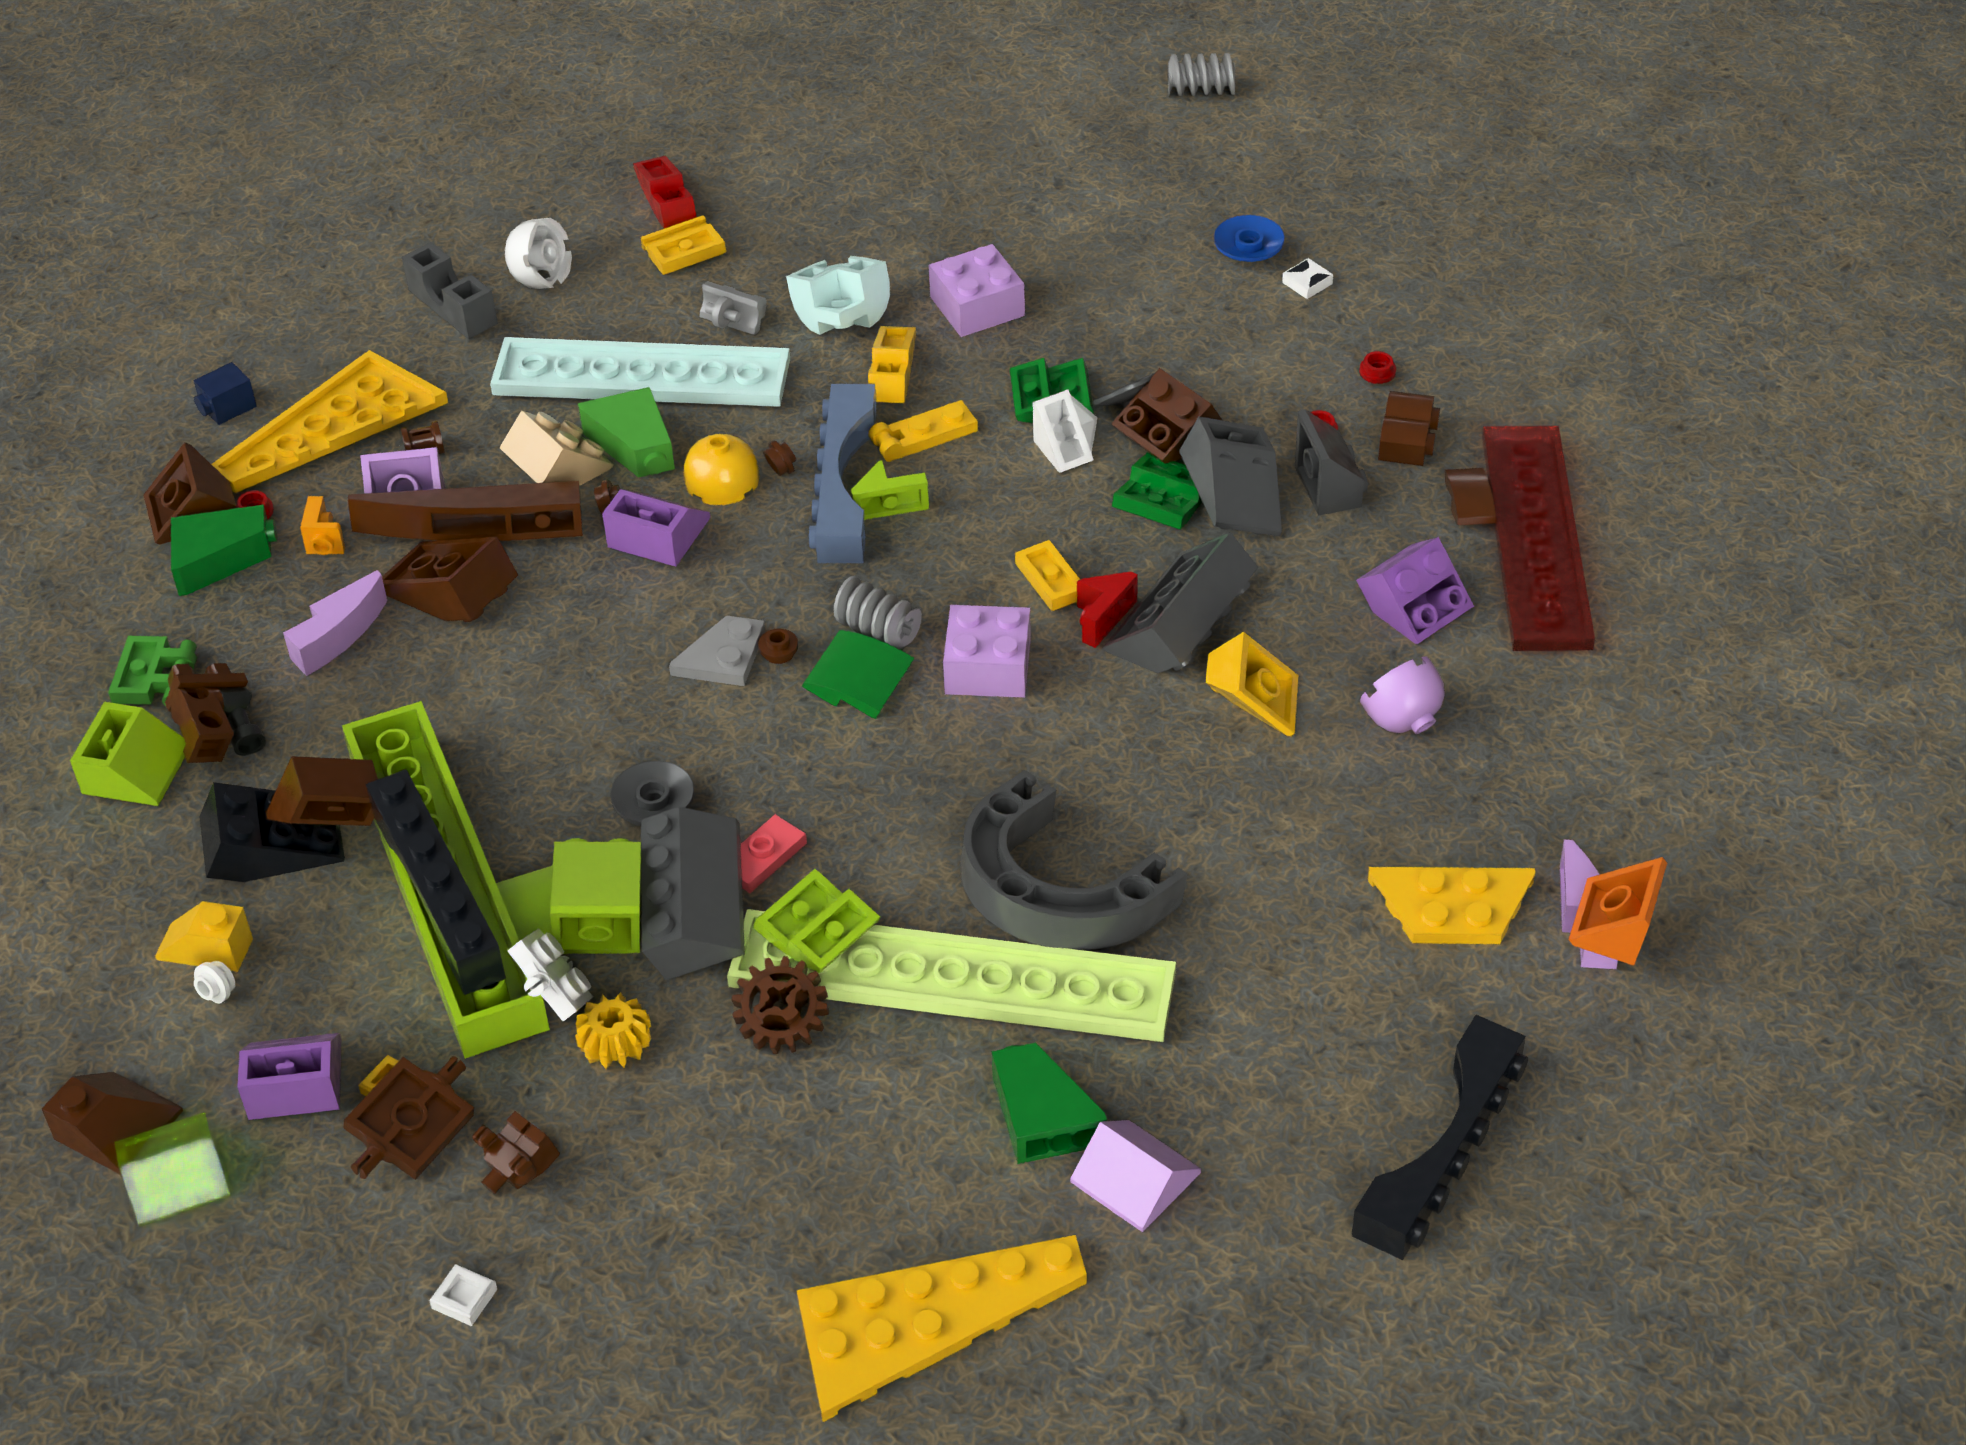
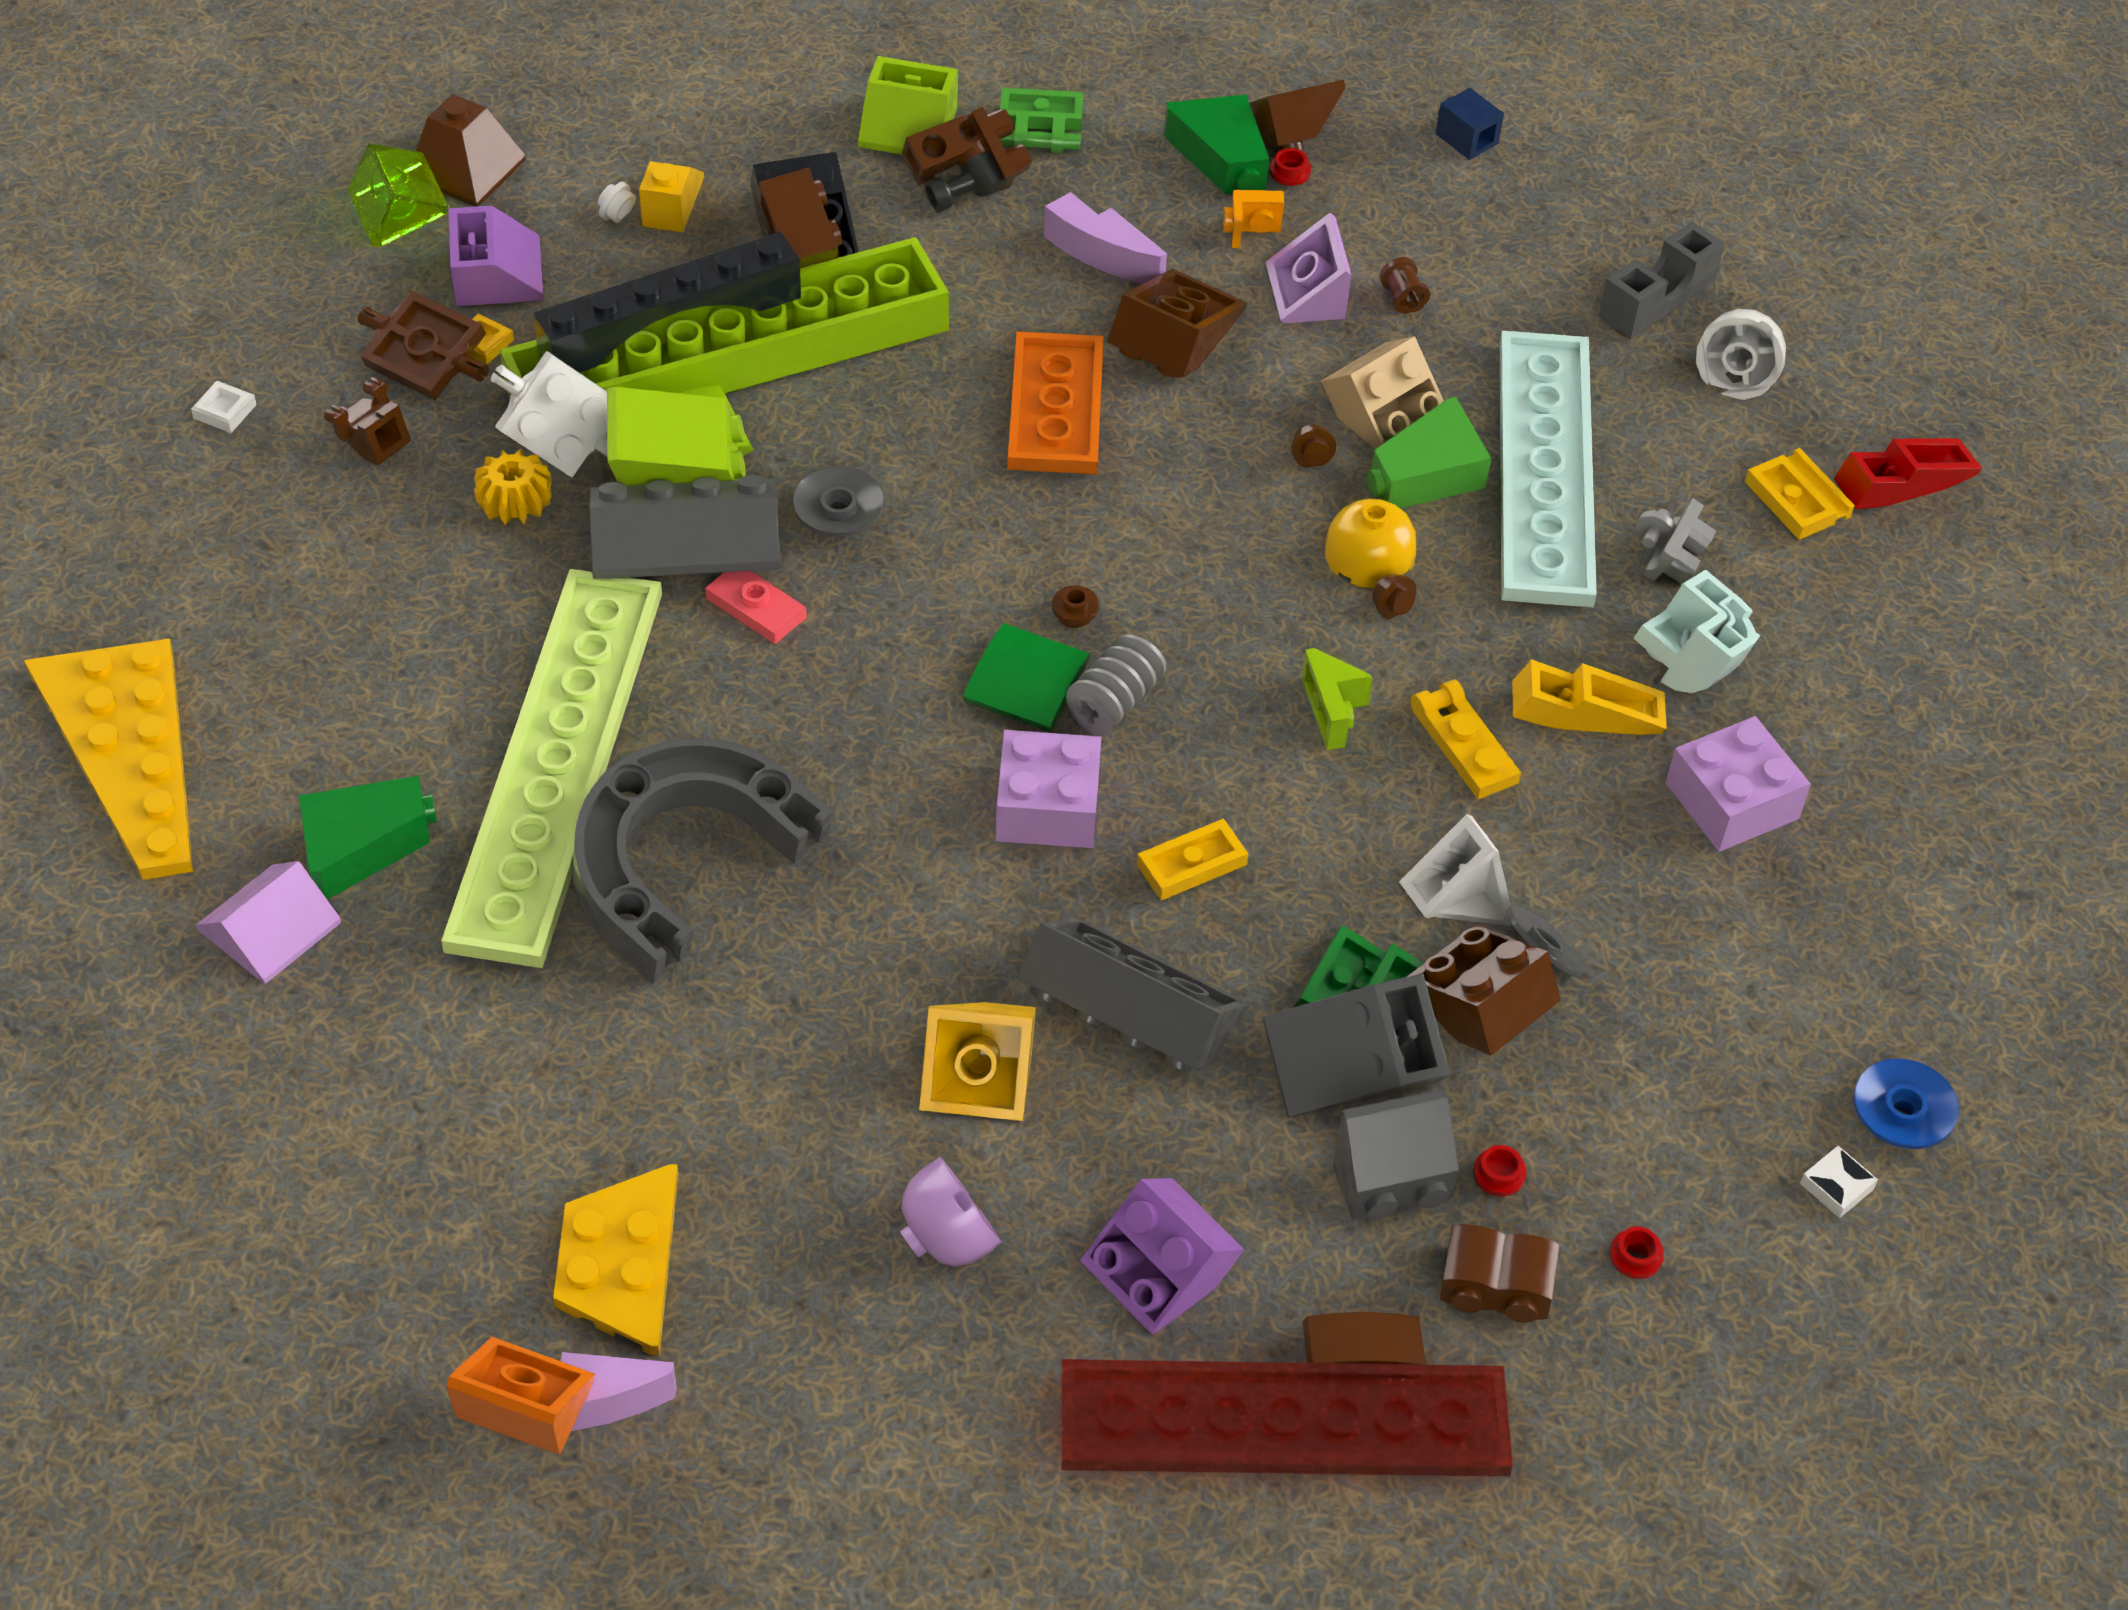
camera: 85 degrees right, 5 degrees up
(343, 410) = (1448, 220): yellow wing -> none
(472, 512) = (1274, 341): reddish brown slope -> none
(537, 656) = (1056, 403): none -> orange plate
(652, 526) = (1266, 481): medium lavender slope -> none
(722, 652) = (1066, 557): light grey wing -> none
(768, 1017) = (522, 611): reddish brown gear -> none
(815, 921) = (626, 632): lime slope -> none
(838, 518) = (1272, 650): sand blue arch -> none
(1036, 381) = (1555, 871): green slope -> none
(1104, 603) = (1136, 915): red slope -> none
(1399, 1202) = (341, 1250): black arch -> none

